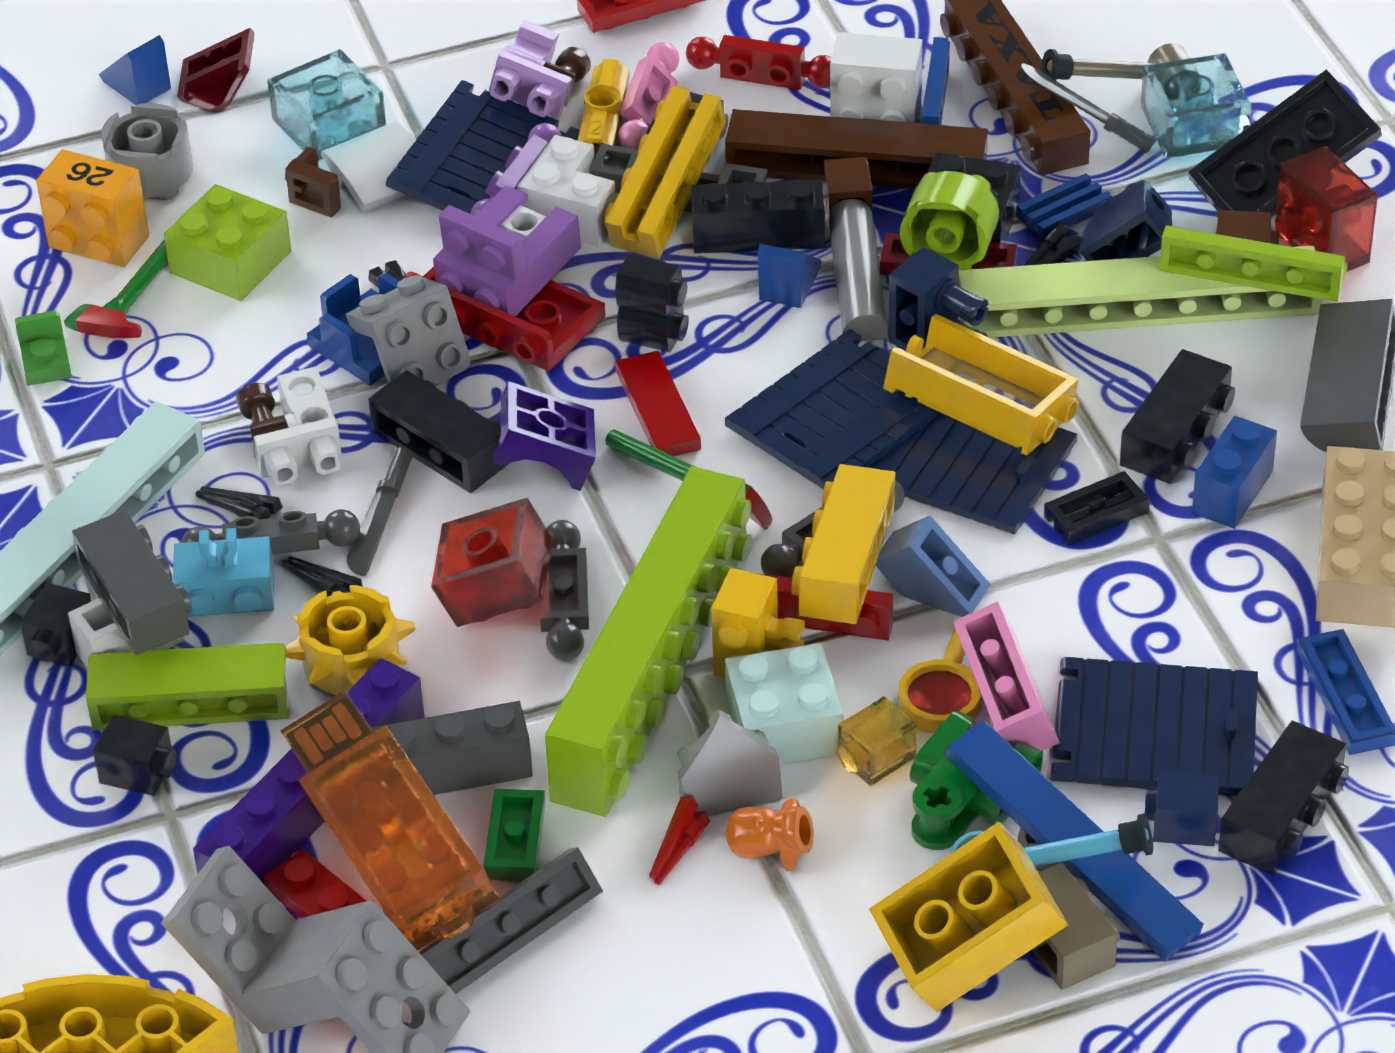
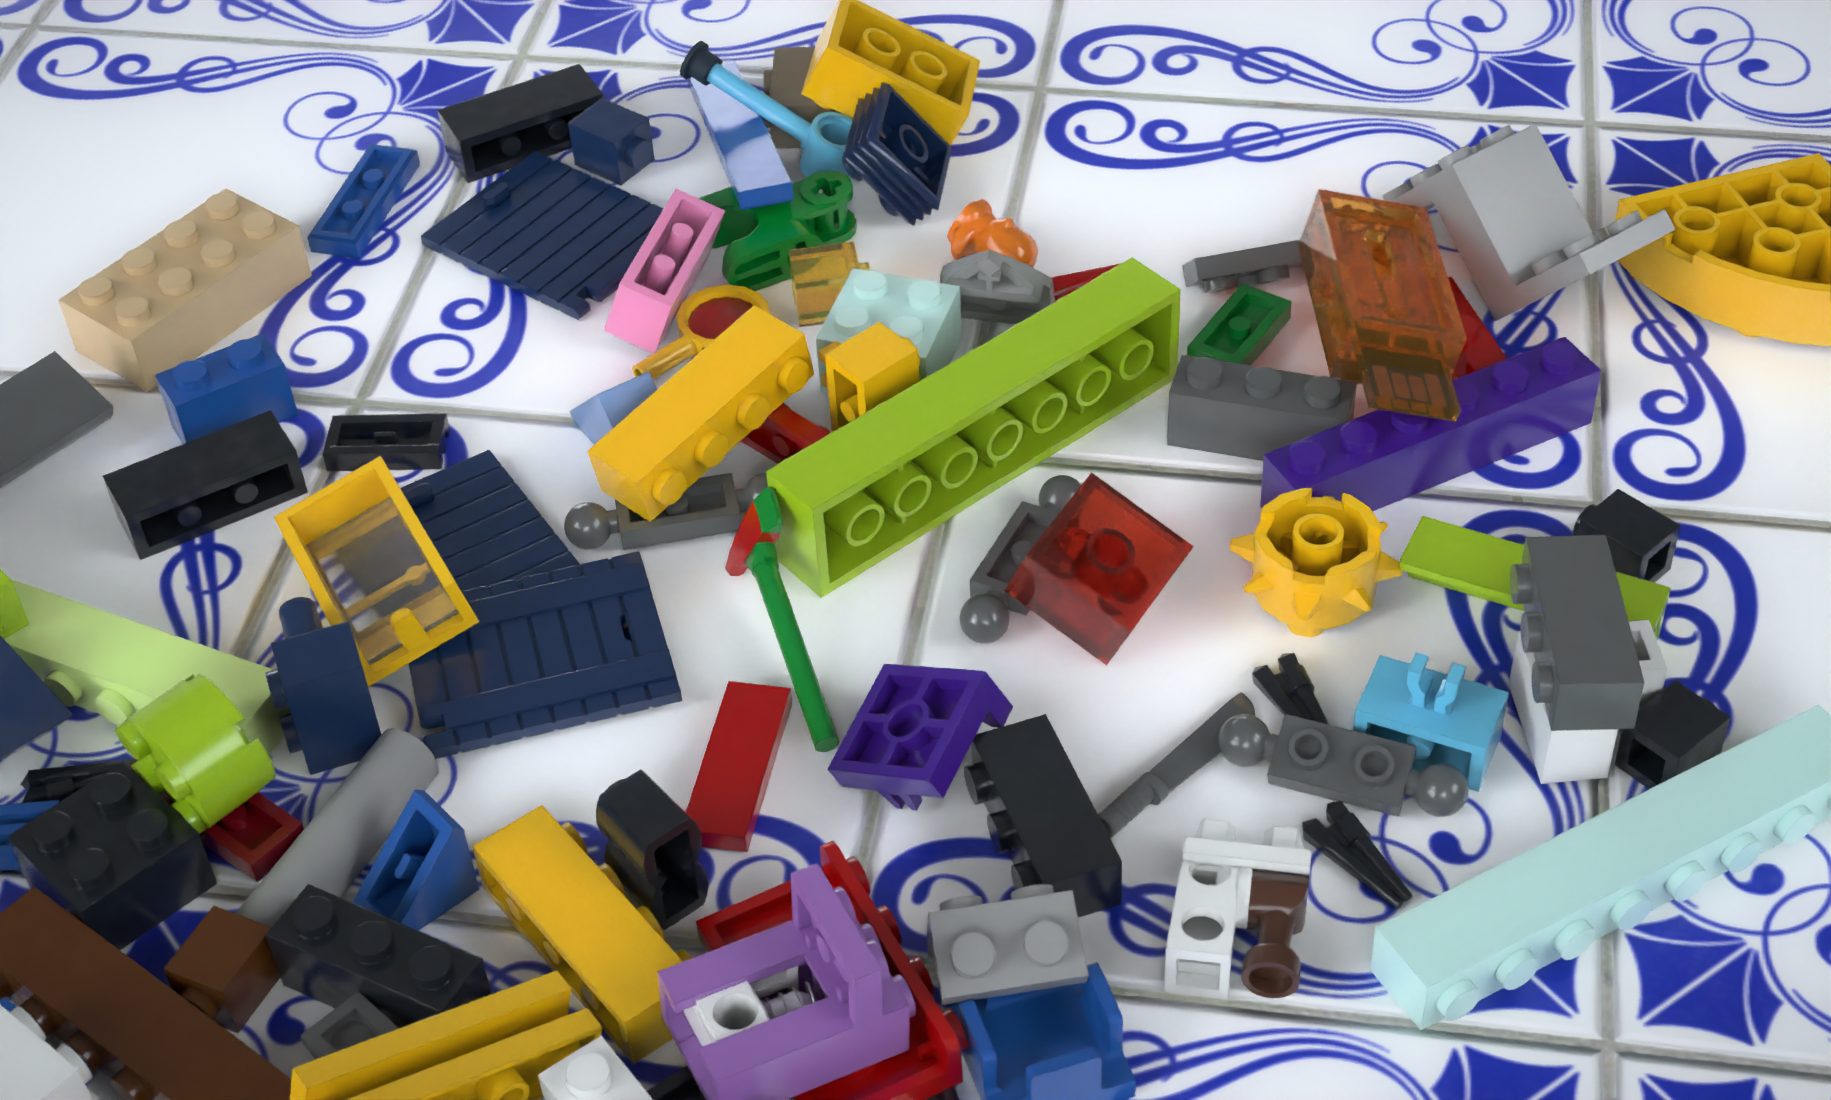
camera: 150 degrees left, 0 degrees up
(717, 292) = (581, 925): none -> yellow brick
(899, 843) = (897, 155): none -> dark blue brick

